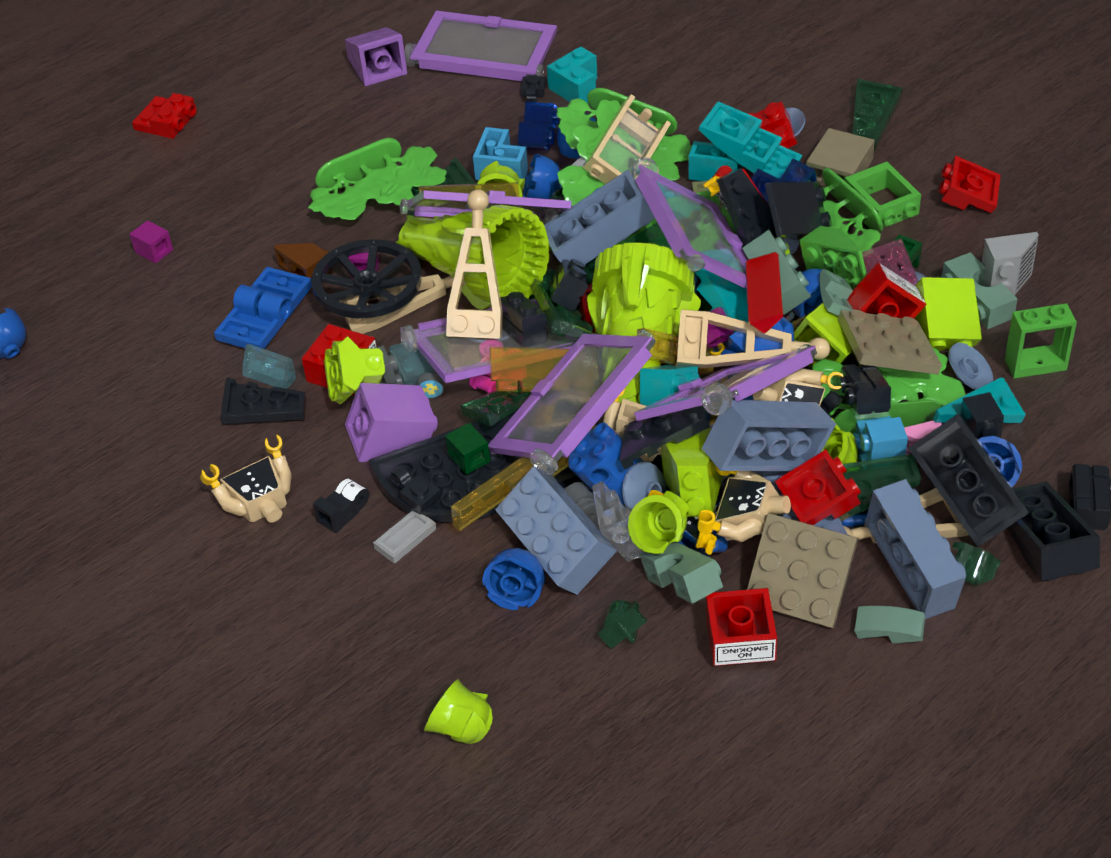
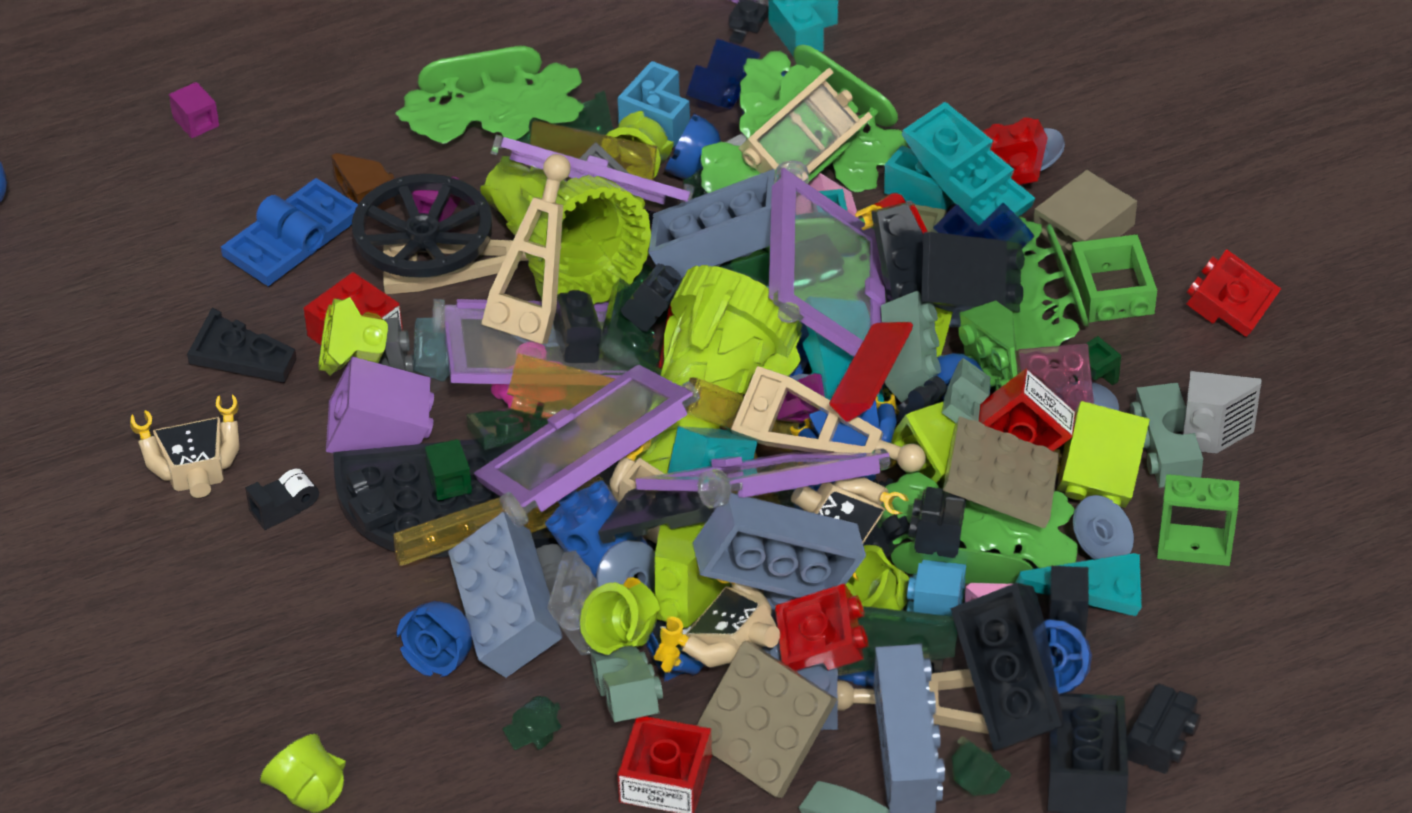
camera: 15 degrees right, 0 degrees up
(268, 367) = (267, 307): clear light blue slope -> none
(404, 536) = (339, 554): light grey tile -> none
(432, 385) = (440, 381): tile -> none
(804, 305) = (922, 397): none -> black plate
(874, 108) = (1167, 156): clear green wing -> none

